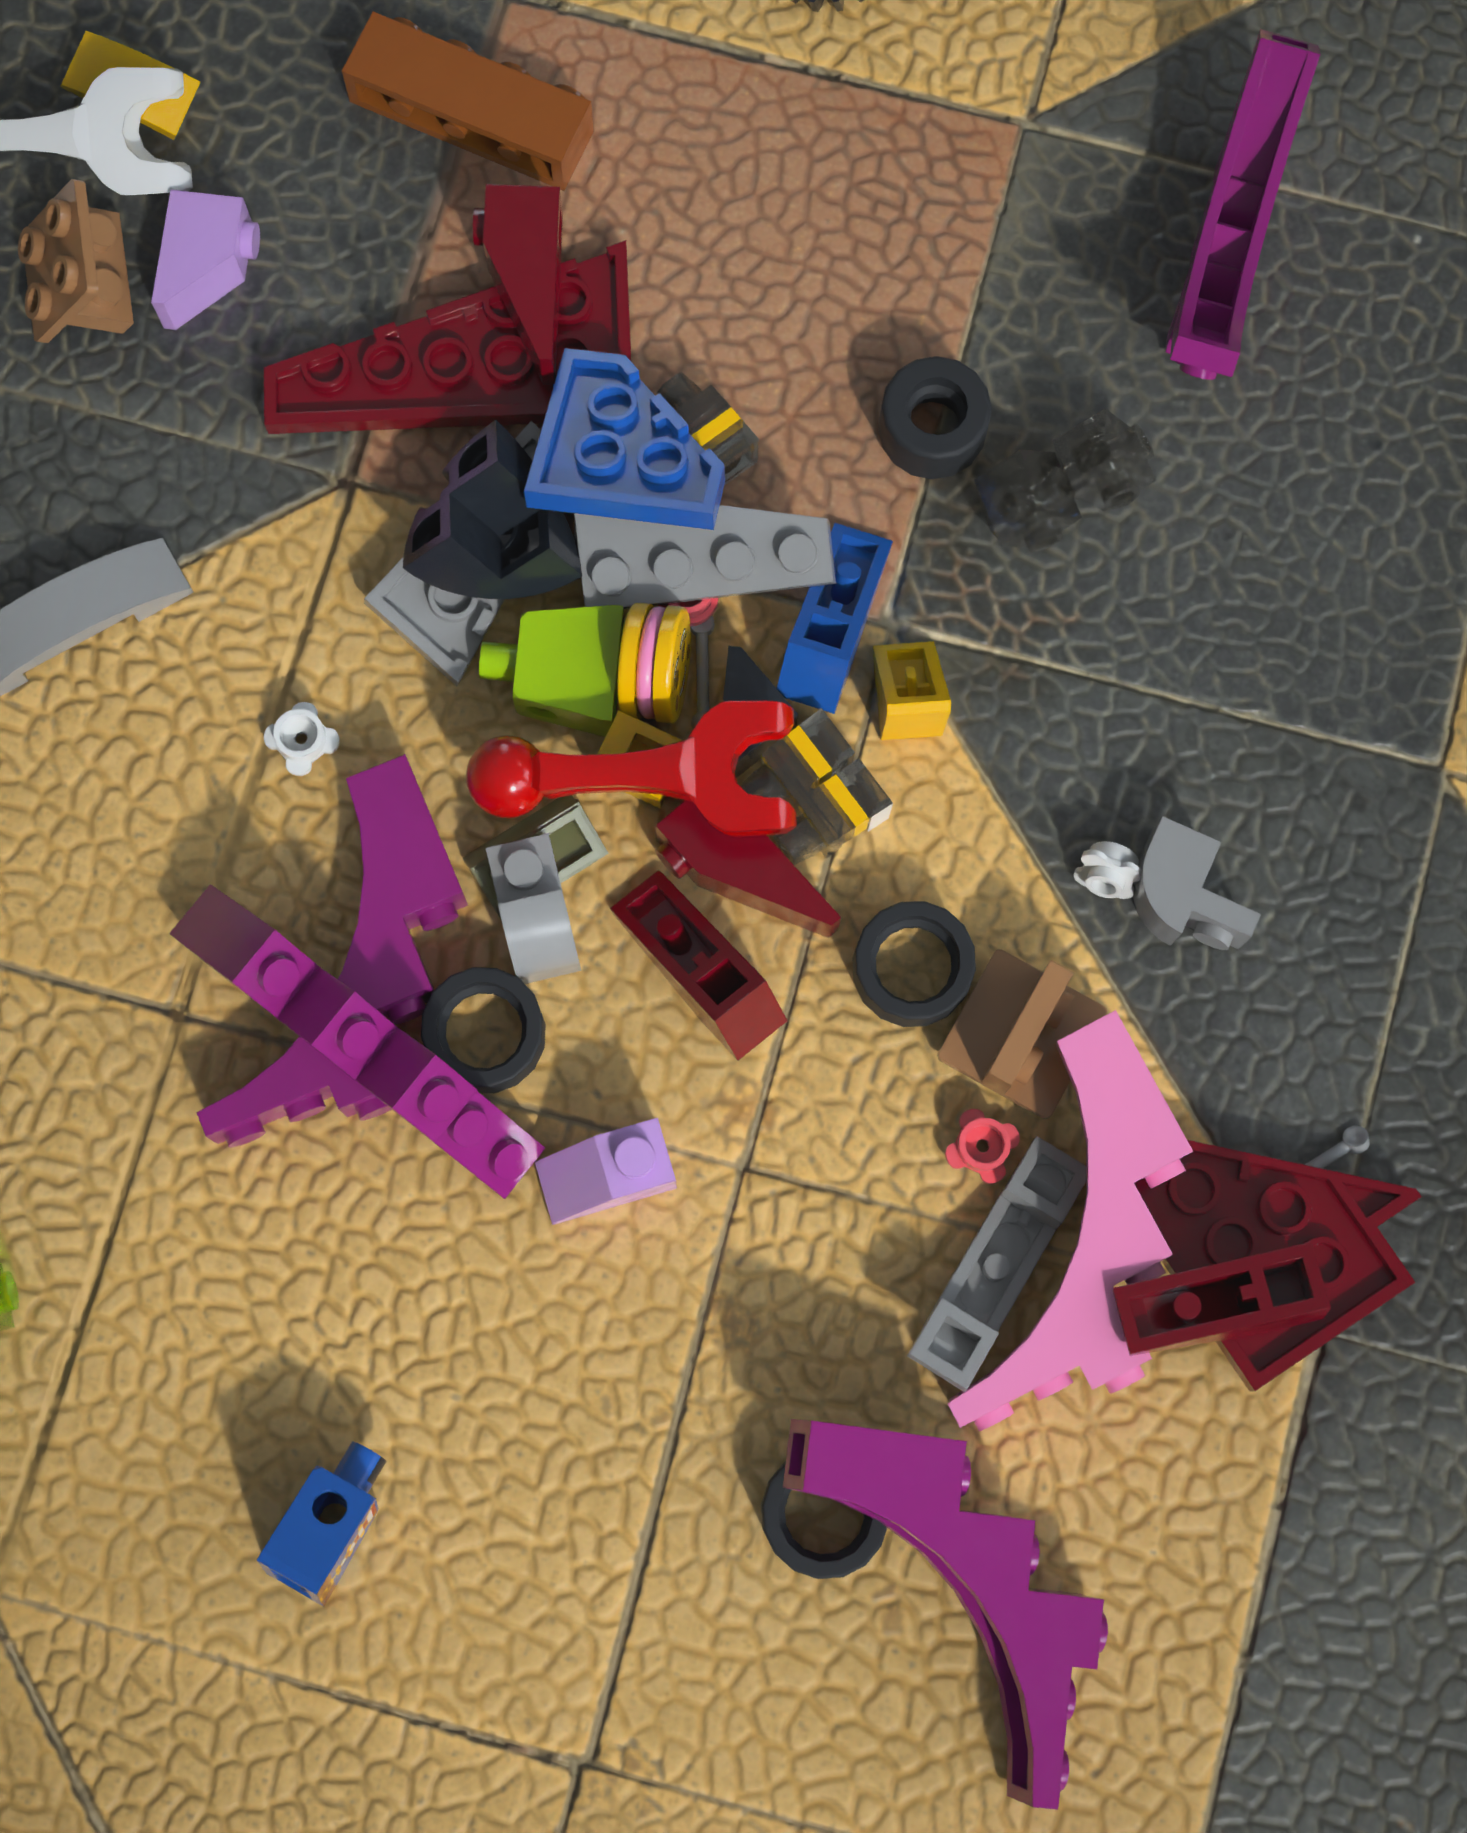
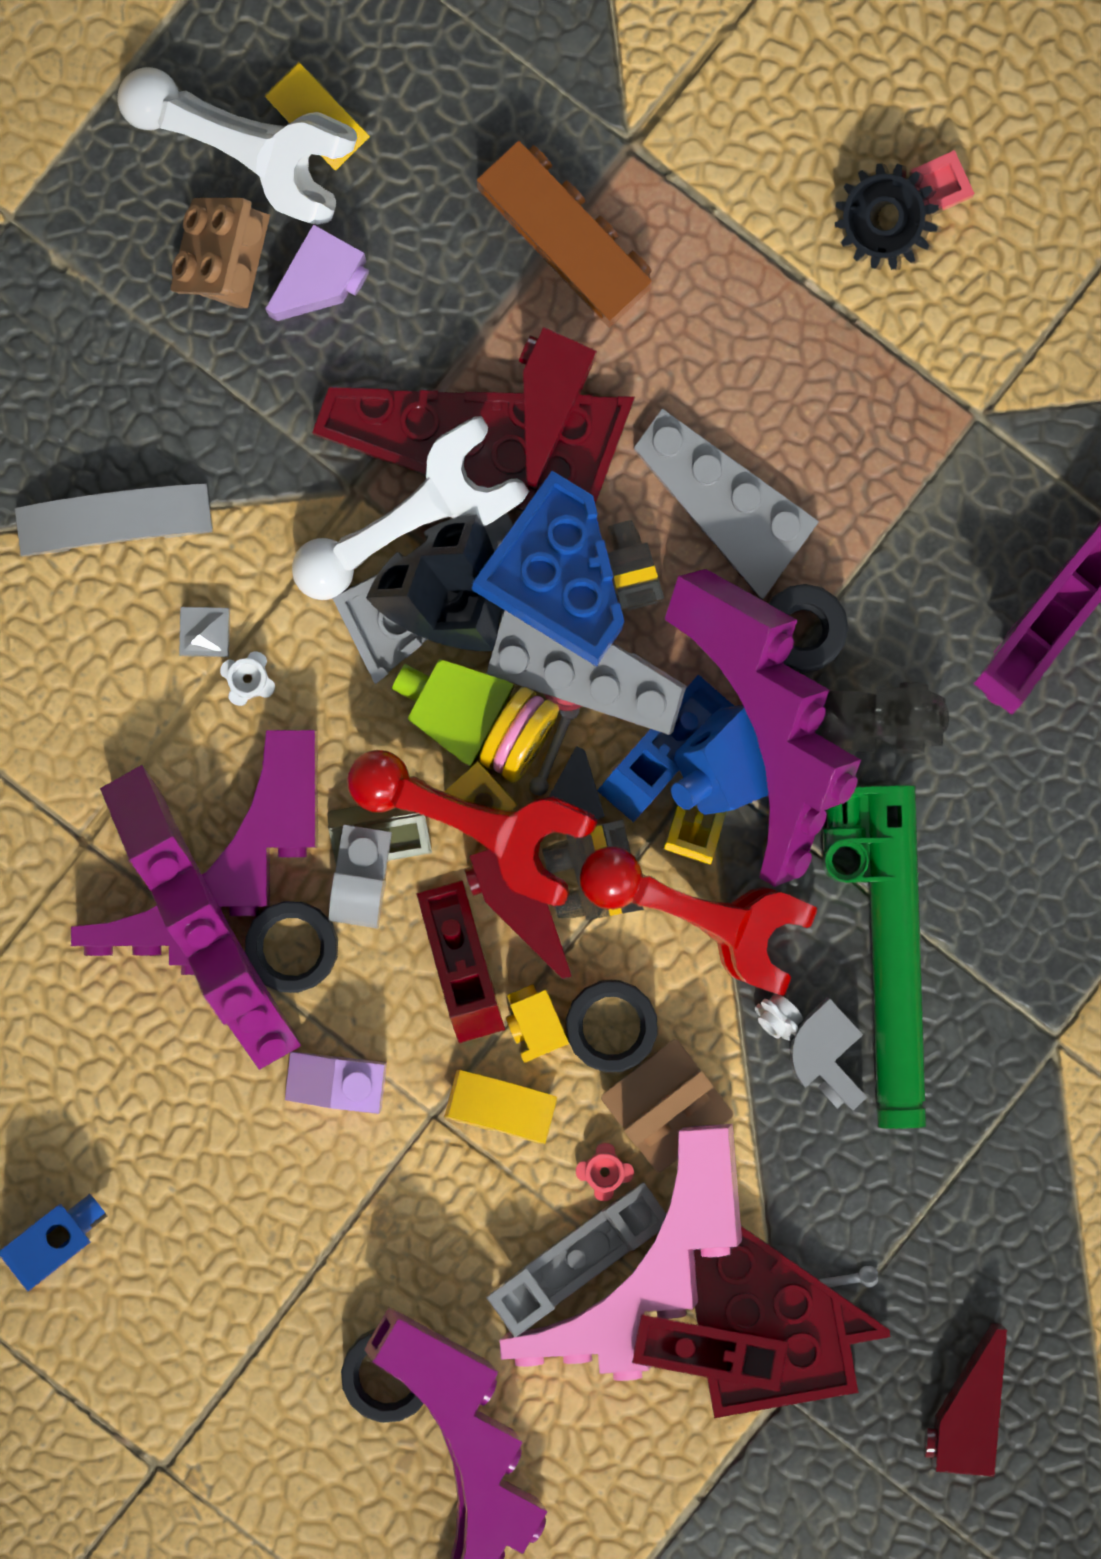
camera: 25 degrees right, 10 degrees up
(227, 706) = (204, 632): none -> light grey tile
(344, 564) = (327, 566): none -> white piece
(800, 323) = (732, 506): none -> light grey wing
(820, 997) = (535, 1022): none -> yellow brick
(820, 1116) = (500, 1106): none -> yellow slope
(916, 593) = (721, 764): none -> blue torso
(959, 500) = (784, 706): none -> magenta arch
(1016, 783) = (741, 928): none -> red piece
(1156, 641) = (891, 866): none -> green piece

